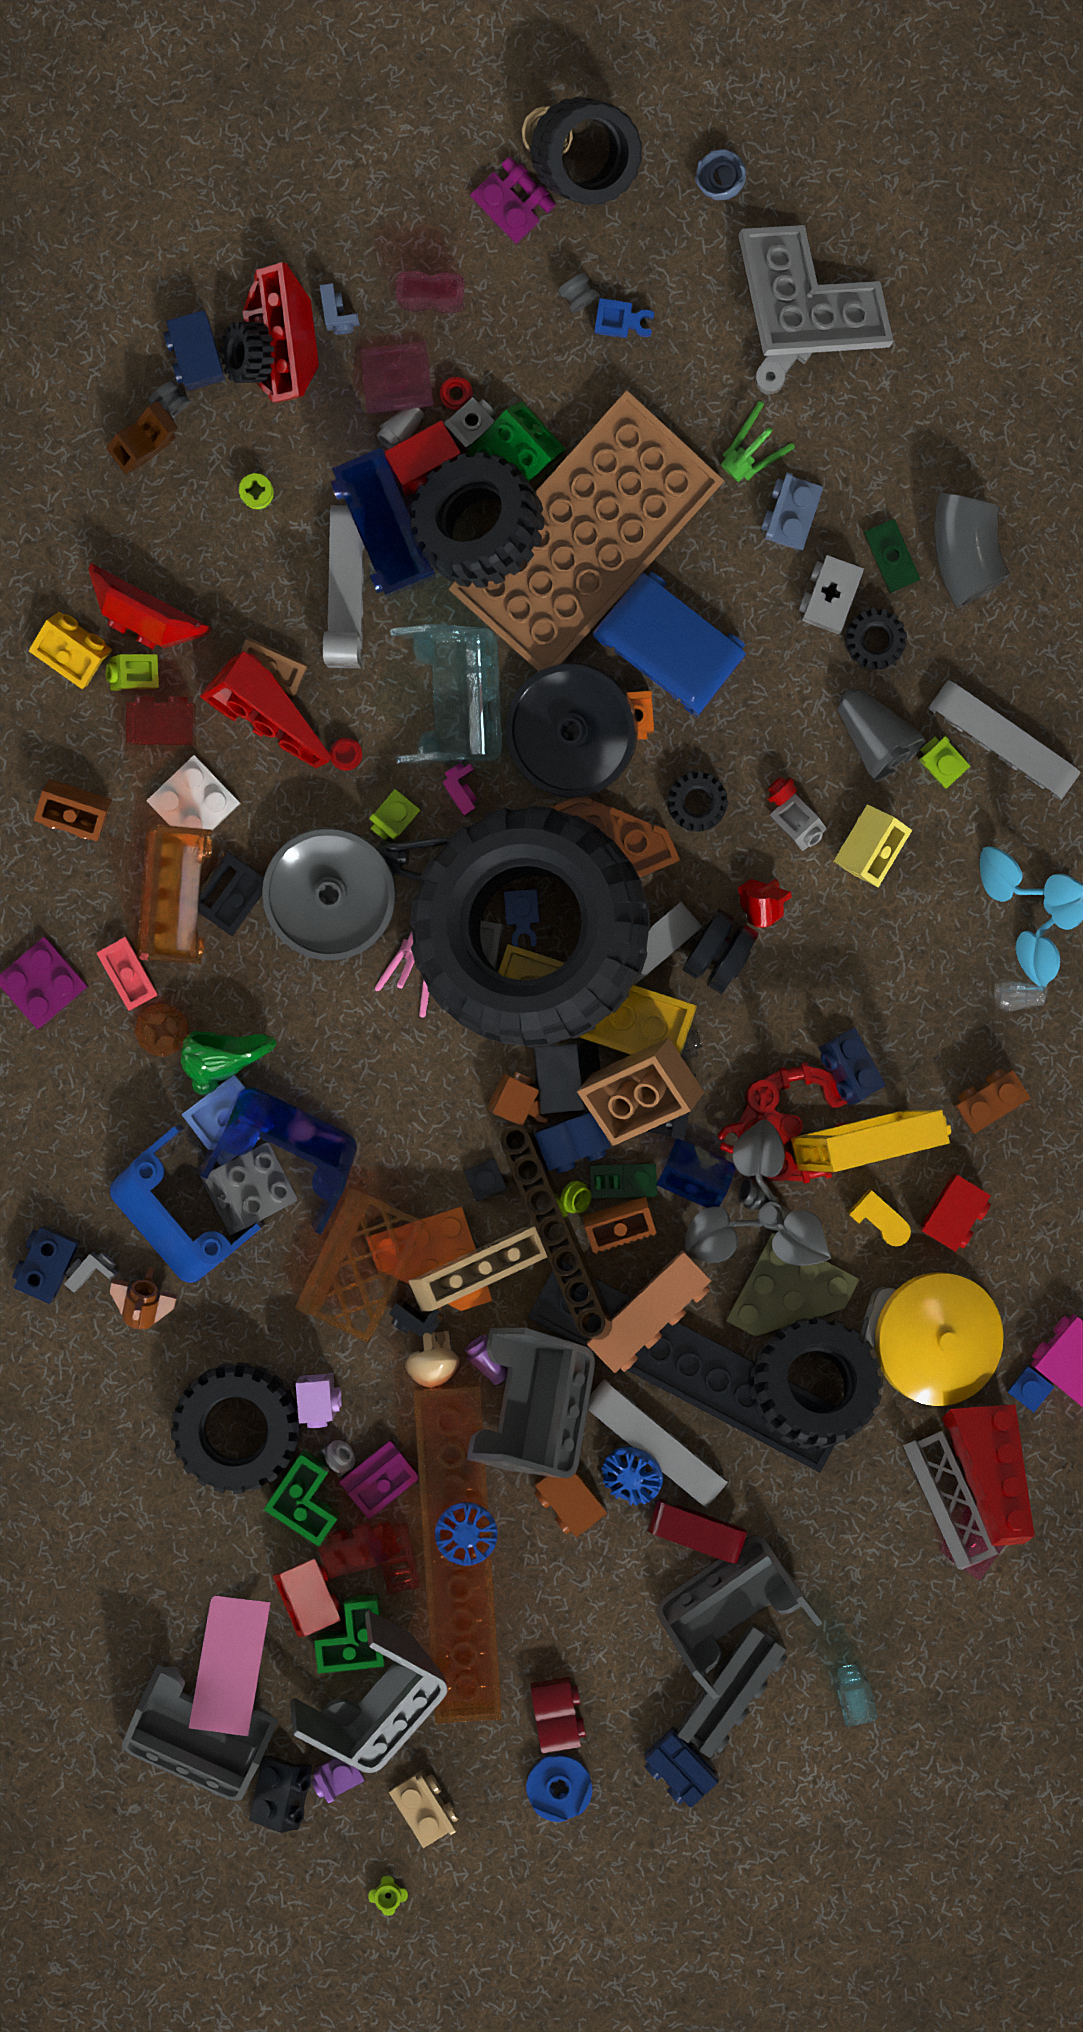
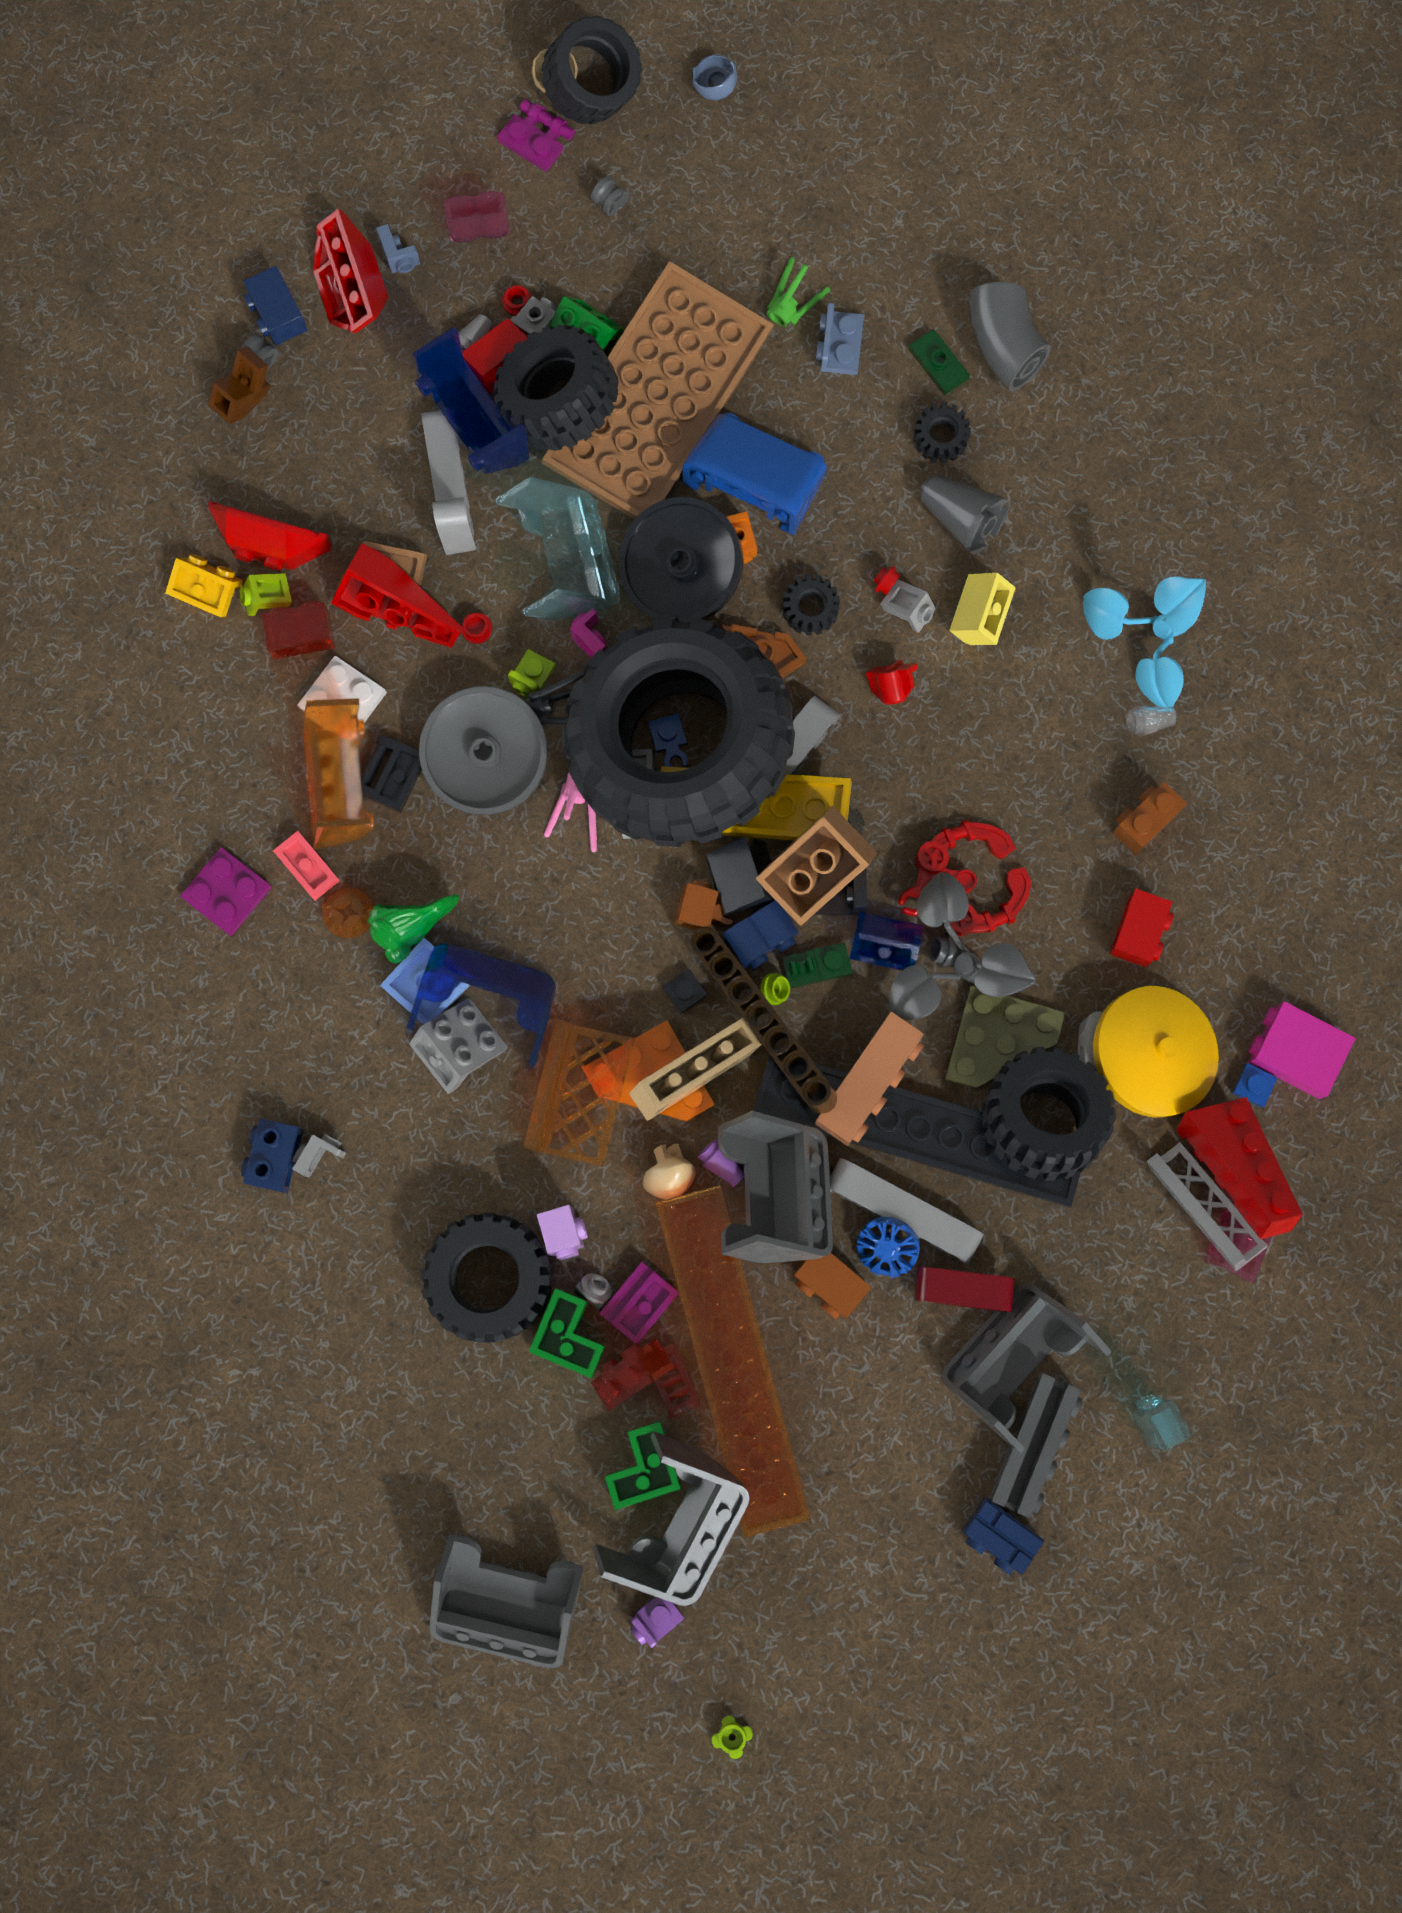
camera: 10 degrees left, 10 degrees down
(72, 810) = (228, 723): dark orange brick -> none
(134, 1197) = (408, 1118): blue windscreen -> none
(142, 1303) = (372, 1174): dark orange brick -> none
(229, 1665) = (524, 1523): bright pink piece -> none
(247, 352) = (321, 295): black tyre -> none
(257, 497) = (355, 422): lime wheel -> none
(280, 1794) = (601, 1650): black bracket -> none
(307, 1597) = (590, 1436): brick -> none
(396, 377) = (461, 296): clear pink plate -> none
(408, 1318) = (636, 1134): black bracket -> none
(423, 1808) = (750, 1635): tan bracket -> none
(466, 1533) = (736, 1333): blue wheel -> none
(556, 1714) = (865, 1508): dark red brick -> none
(568, 1803) = (867, 1595): blue plate -> none
(616, 318) = (648, 211): blue plate -> none
(619, 1224) = (823, 1003): dark orange brick -> none
(723, 953) = (861, 728): black wheel -> none
(772, 371) = (801, 216): light grey leg -> none
(798, 313) = (810, 170): light grey plate -> none
(831, 614) = (894, 384): light grey brick -> none
(851, 1067) = (1009, 814): dark blue bracket -> none
(870, 1140) = (1047, 862): yellow window -> none
(892, 1226) = (1080, 952): yellow leg -> none
(943, 761) = (1028, 526): lime bracket -> none
(1004, 738) = (1080, 494): light grey beam -> none

